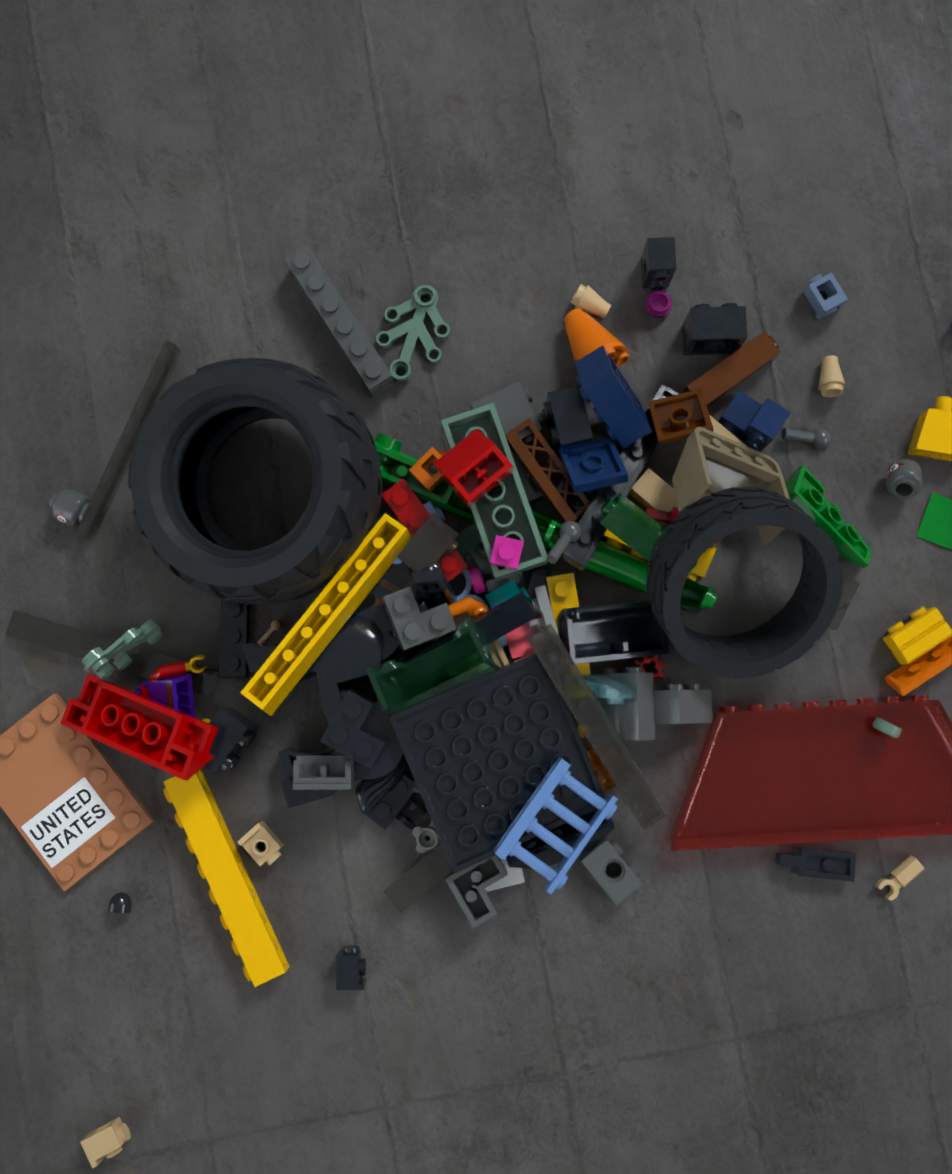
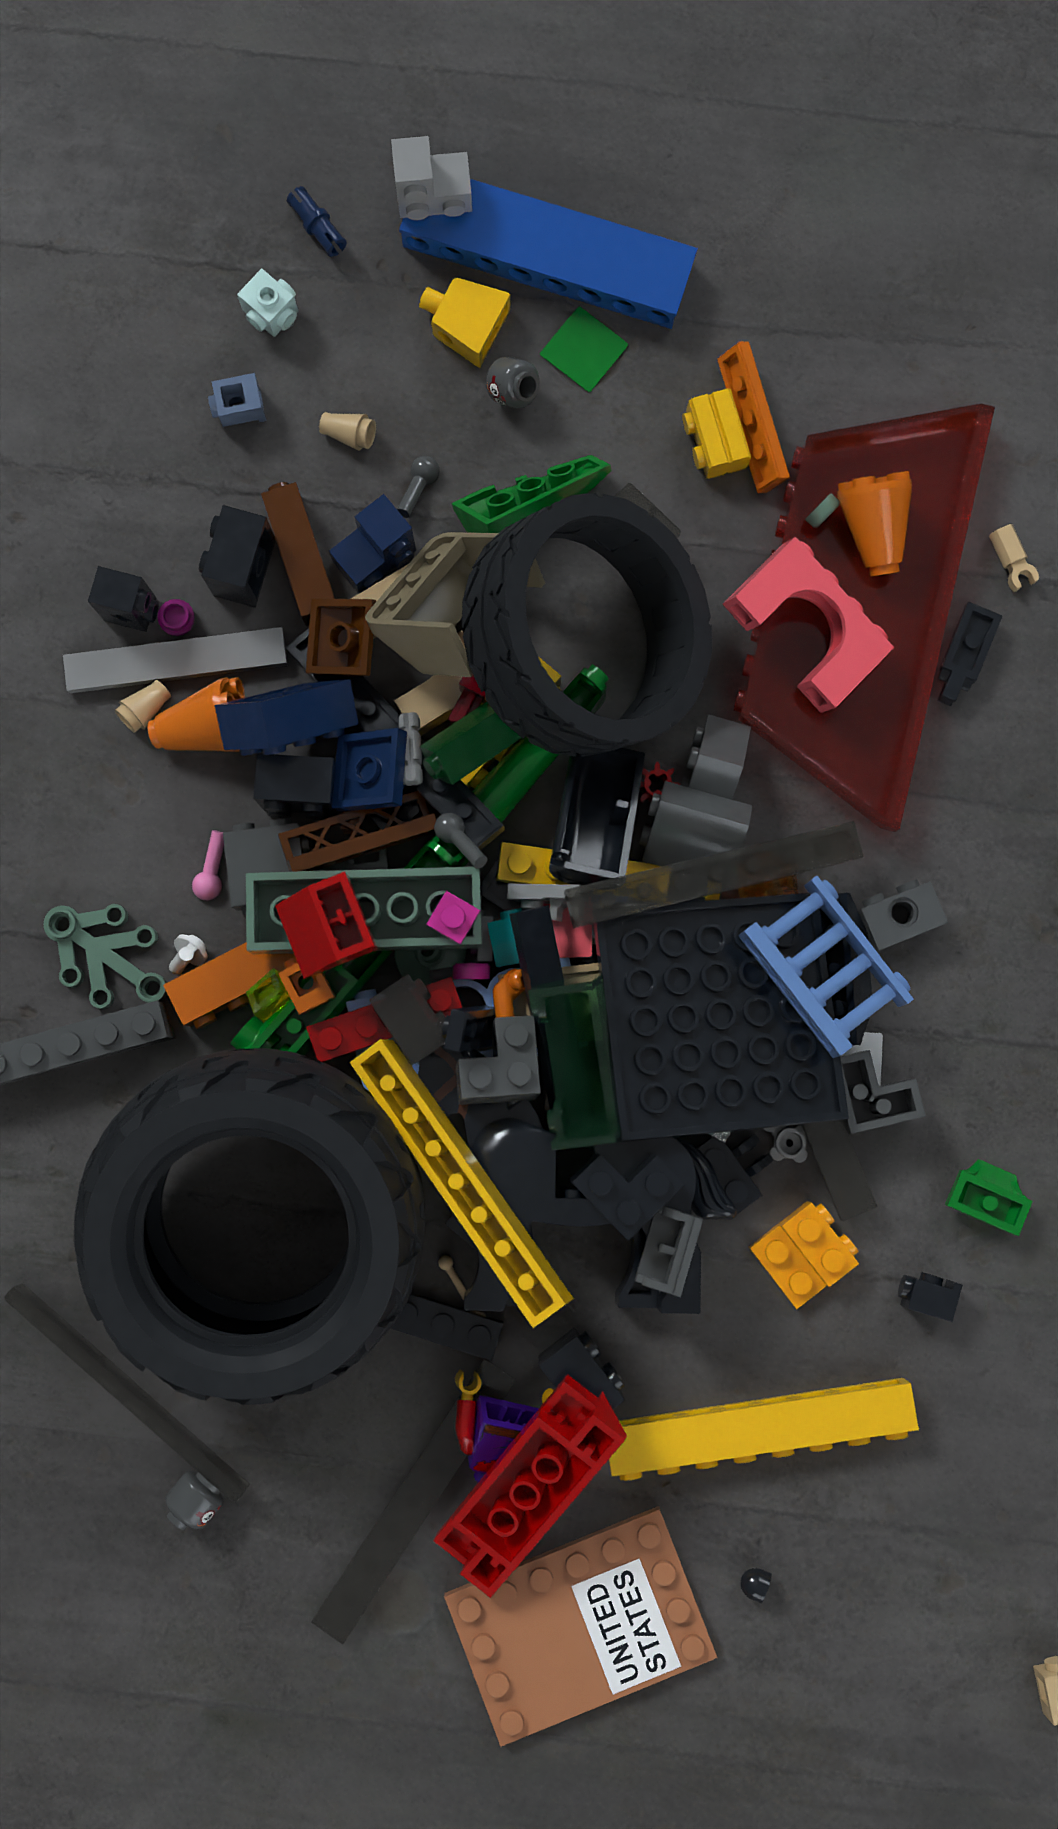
camera: 80 degrees left, 0 degrees up
(98, 659) = (424, 1514): sand green plant -> none
(262, 833) = (719, 1364): tan brick -> none
(354, 871) = (805, 1253): none -> light orange plate
(416, 414) = (220, 984): none -> orange brick
(416, 446) = (268, 995): none -> clear neon green plate
(432, 992) = (990, 1197): none -> green slope
(434, 386) = (190, 950): none -> white plate
(482, 384) = (207, 883): none -> bright pink bar
(609, 688) = (670, 842): clear light blue slope -> none
(629, 313) = (175, 660): none -> light grey tile
(634, 483) = (413, 759): none -> light grey axle
(798, 779) = (855, 641): none -> coral arch
(894, 769) = (878, 518): none -> orange cone
(901, 293) = (268, 303): none -> light aqua brick

